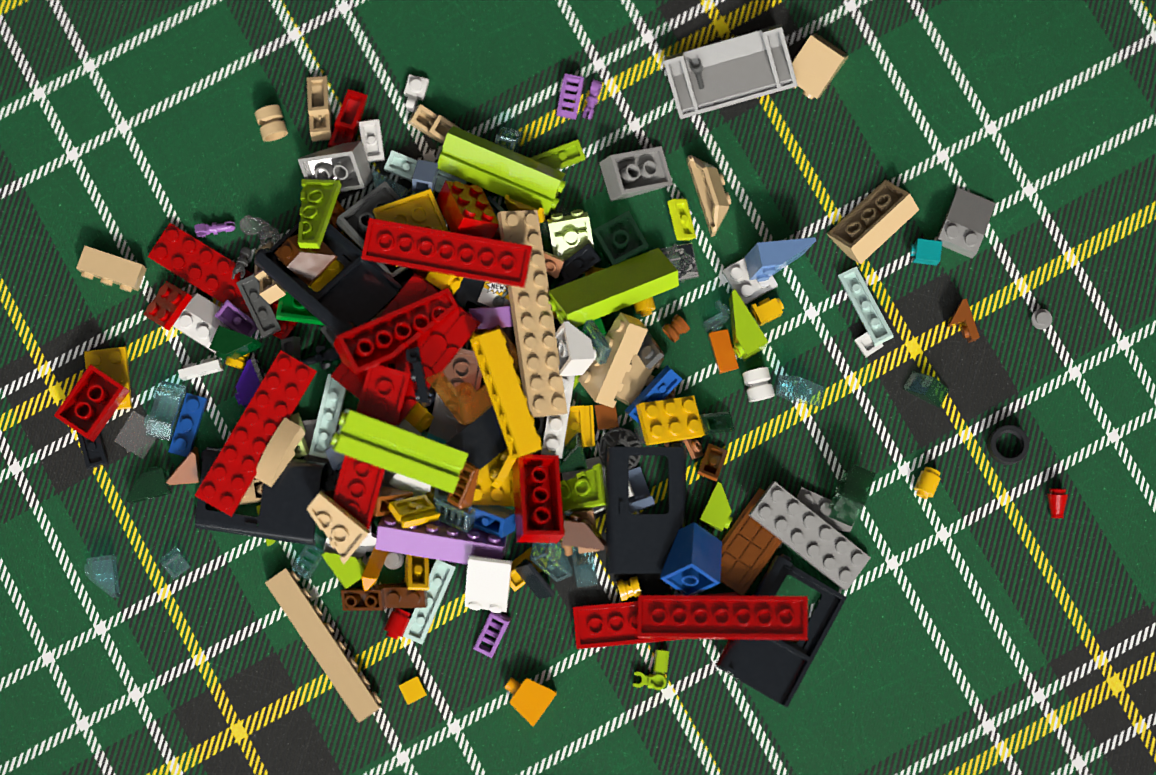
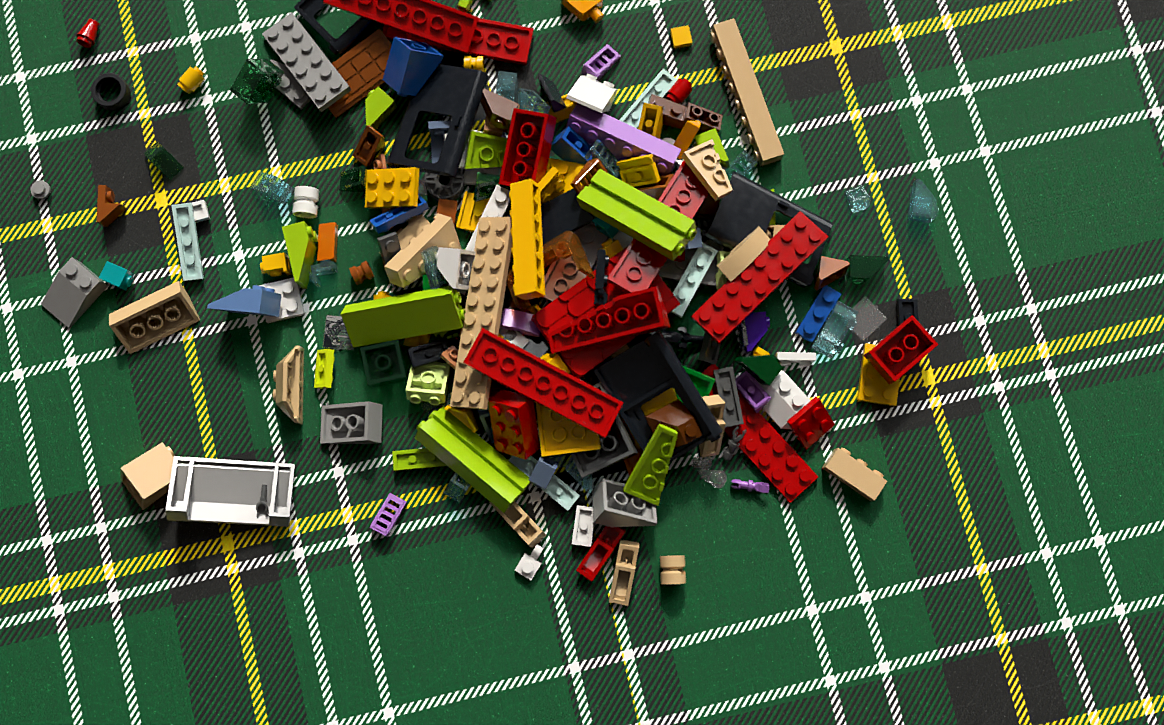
camera: 165 degrees left, 0 degrees up
(592, 98) = (368, 506): medium lavender piece -> none

